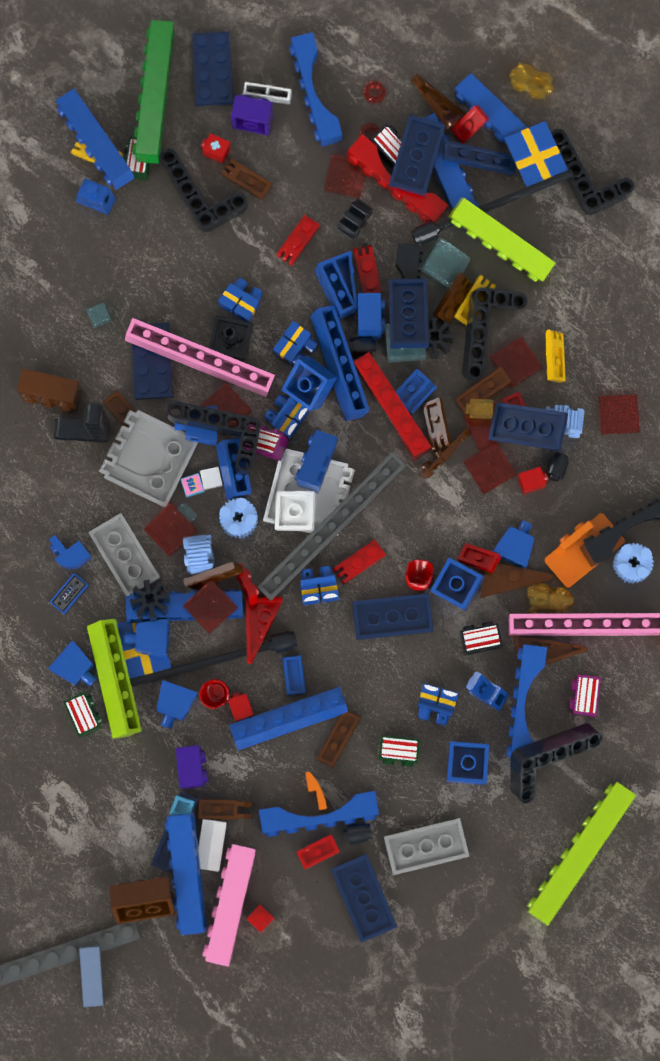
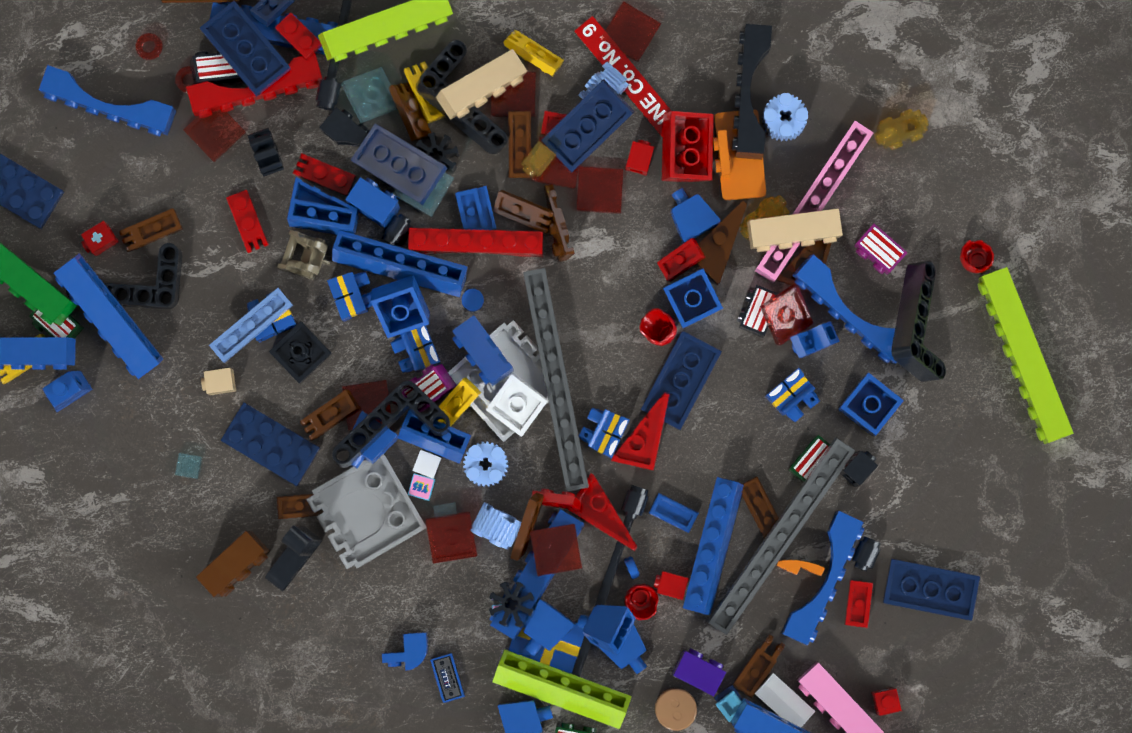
camera: 55 degrees left, 5 degrees up
(123, 554) = (446, 599): light grey plate -> none
(154, 770) = (676, 709): none -> medium nougat head
(165, 189) = (108, 316): none -> blue brick
(171, 296) = (218, 381): none -> tan brick
(180, 679) = (607, 626): none -> blue torso
(199, 357) = (301, 396): bright pink brick -> none
(200, 387) = (330, 414): none -> reddish brown hinge
(225, 289) = (251, 325): none -> medium blue plate
(234, 671) = (631, 566): none -> blue tile
(252, 114) = (90, 180): dark purple brick -> none
(268, 89) = (74, 147): white piece -> none
(270, 469) = (459, 400): none -> yellow hinge
(302, 300) = (311, 258): none -> dark tan piece
(328, 620) = (643, 443): none -> red wing
(329, 761) = (781, 536): none -> dark grey plate
(349, 432) = (472, 300): none -> blue tile
(360, 561) = (605, 375): red hinge -> none
(416, 784) = (859, 468): none -> black brick
(426, 846) = (922, 497): light grey plate -> none
(451, 186) = (298, 36): none -> red plate
(491, 659) = (786, 314): none -> clear red tile
(505, 333) = (482, 84): none -> tan brick
(555, 621) = (793, 229): none -> tan brick
(557, 466) = (642, 125): black brick -> none
(563, 508) = (687, 146): none -> red slope
(580, 450) = (639, 89): none -> red sticker
(629, 769) = (976, 256): none -> red hair

